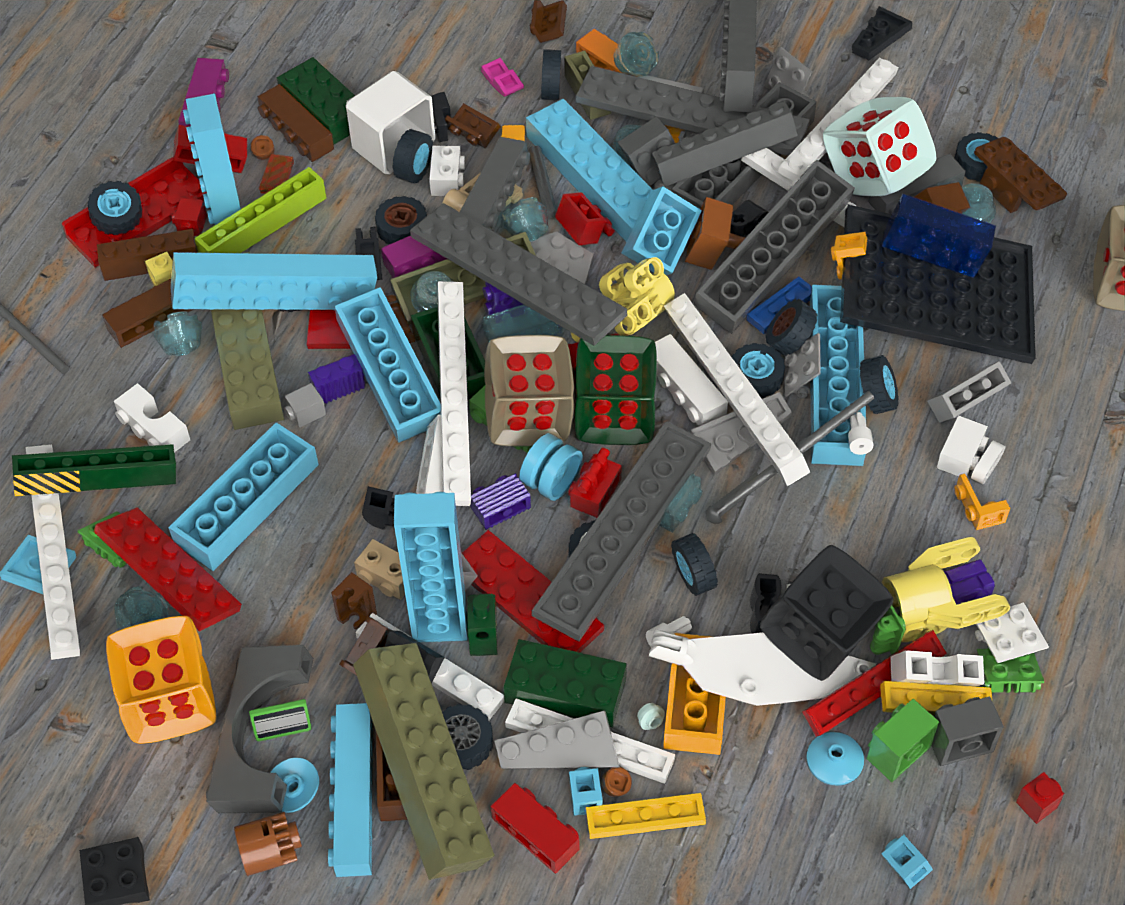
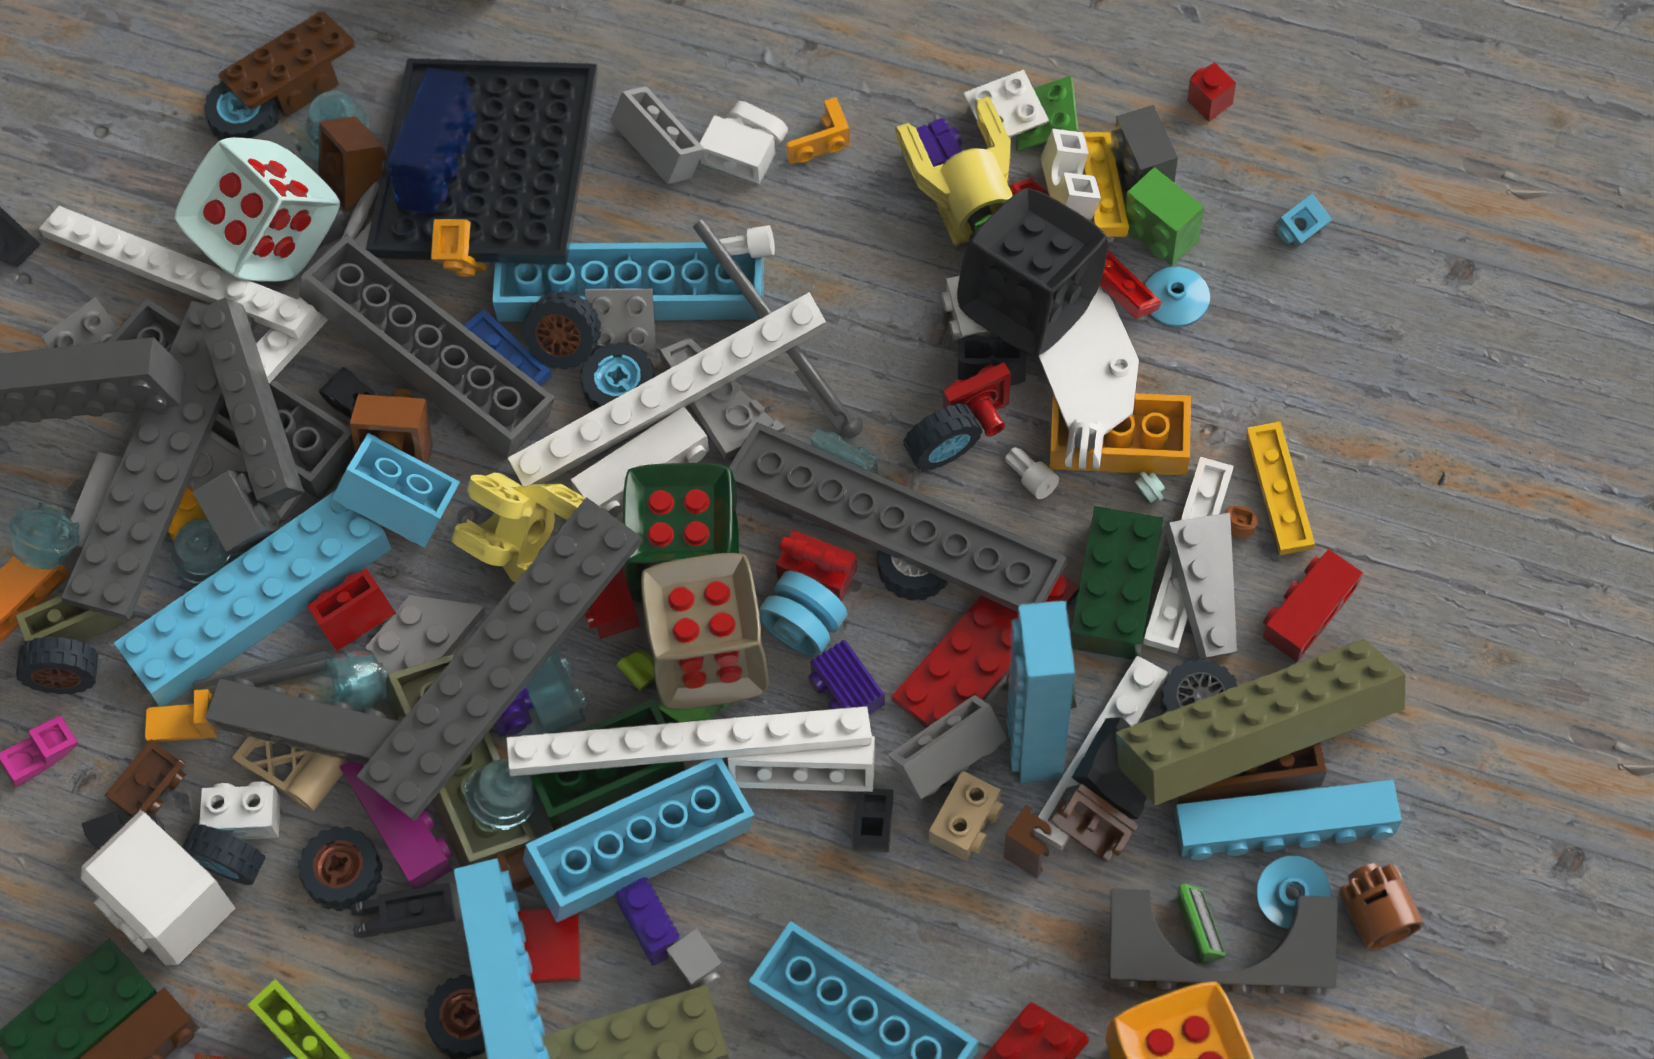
camera: 90 degrees left, 10 degrees up
(584, 779) = (1265, 544): medium azure brick -> none
(729, 592) = (983, 396): none -> red plate
(880, 380) = (654, 228): black wheel -> none

